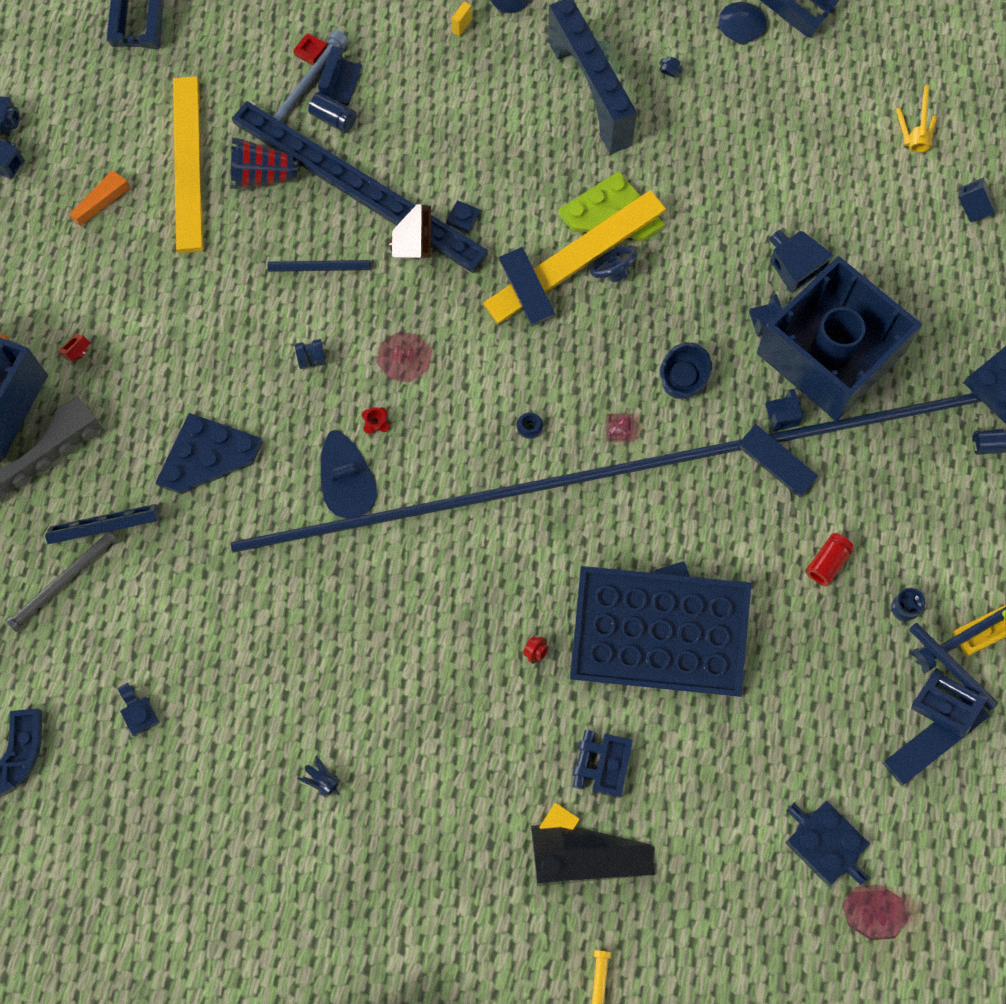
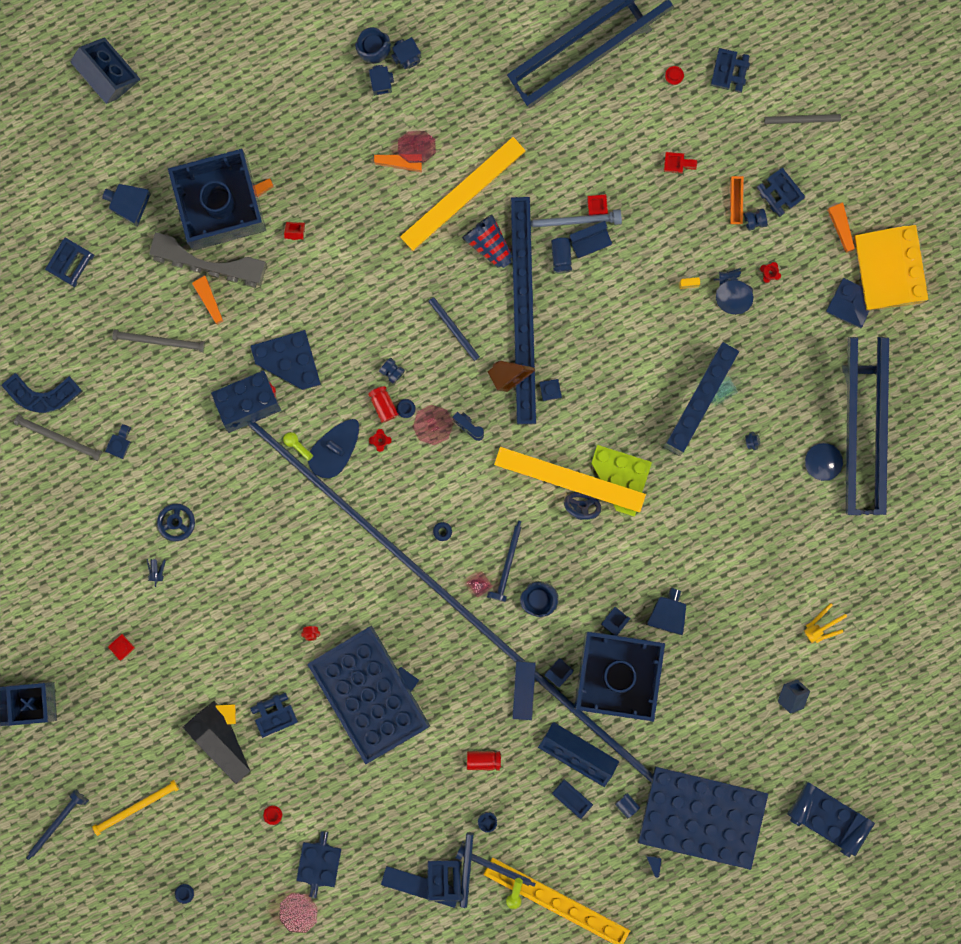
camera: 55 degrees right, 15 degrees up
(10, 813) = (19, 420): none -> dark grey bar
(60, 490) = (204, 290): none -> orange piece
(99, 170) = (416, 146): none -> clear pink piece
(102, 523) = (205, 337): dark blue tile -> none
(212, 527) = (246, 401): none -> dark blue piece
(276, 706) = (169, 525): none -> dark blue piece
(297, 515) = (291, 440): none -> lime bar
(339, 387) = (383, 404): none -> red piece
(363, 370) = (406, 408): none -> dark blue plate
(380, 893) = (121, 647): none -> red plate
(427, 312) = (464, 422): none -> dark blue plate
(527, 286) = (527, 466): dark blue tile -> none
(647, 415) = (499, 595): none -> dark blue piece
(726, 856) = (272, 815): none -> red plate
(894, 454) = (579, 754): none -> dark blue panel
(941, 496) = (572, 799): none -> dark blue tile

